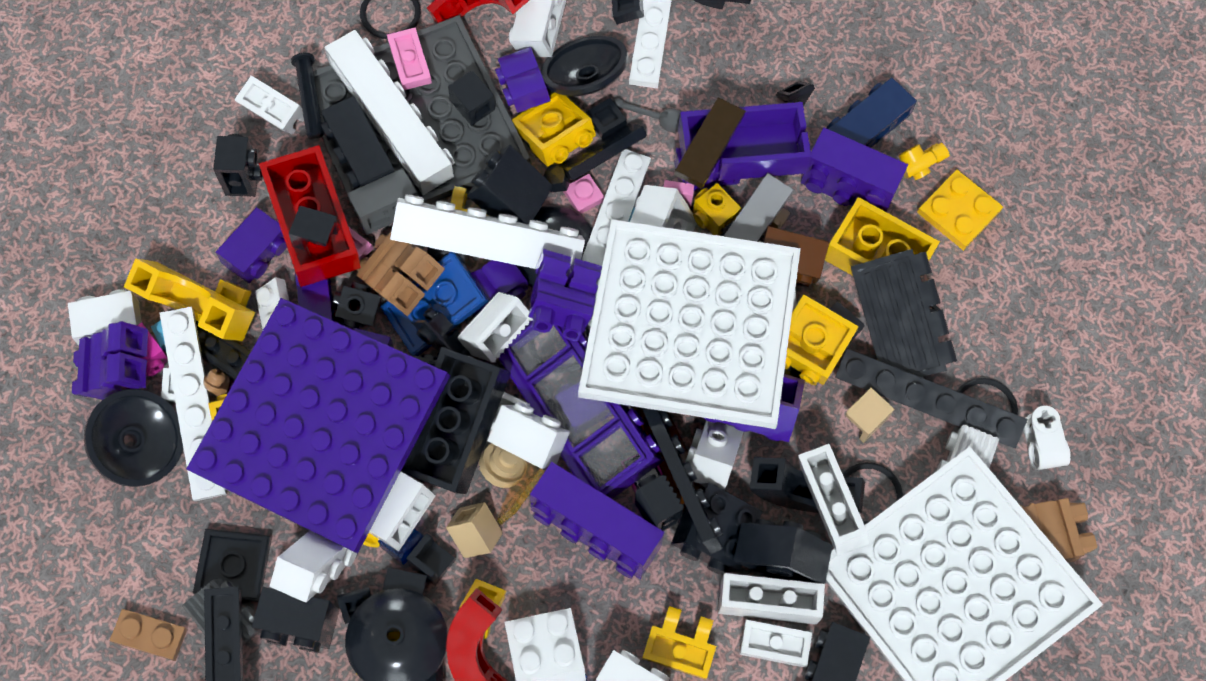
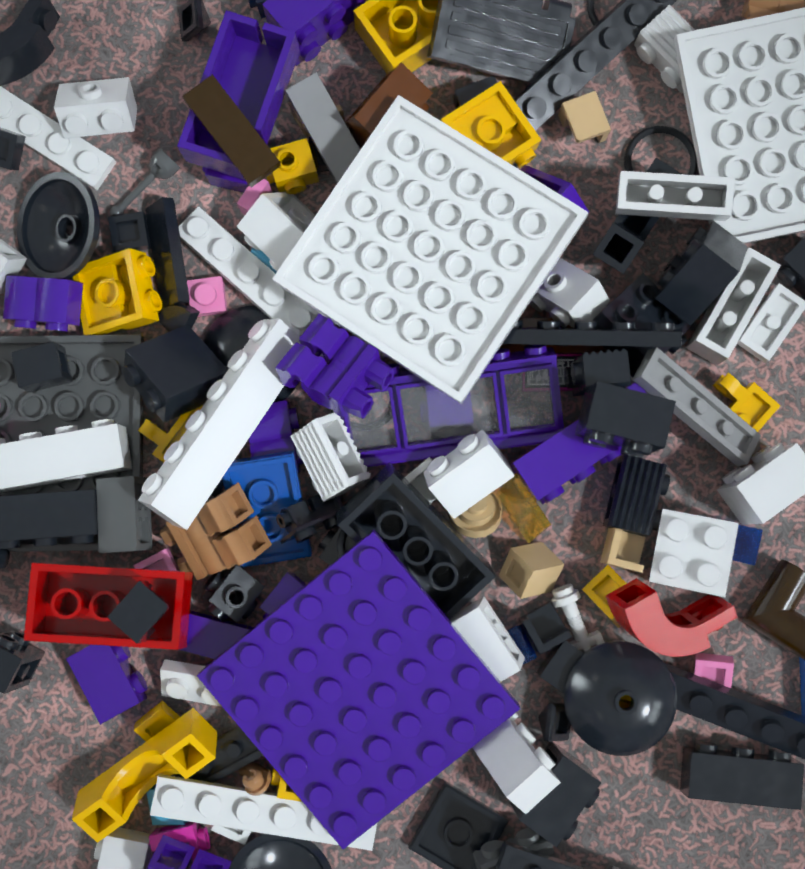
camera: 60 degrees left, 15 degrees up
(462, 569) = (565, 597): none -> white hinge
(523, 597) = (623, 550): none -> tan panel
(575, 588) = (636, 495): none -> black brick
(622, 520) = (624, 419): none -> black brick
(667, 596) = (697, 407): none -> light grey plate
(689, 54) = (96, 107): none -> white brick

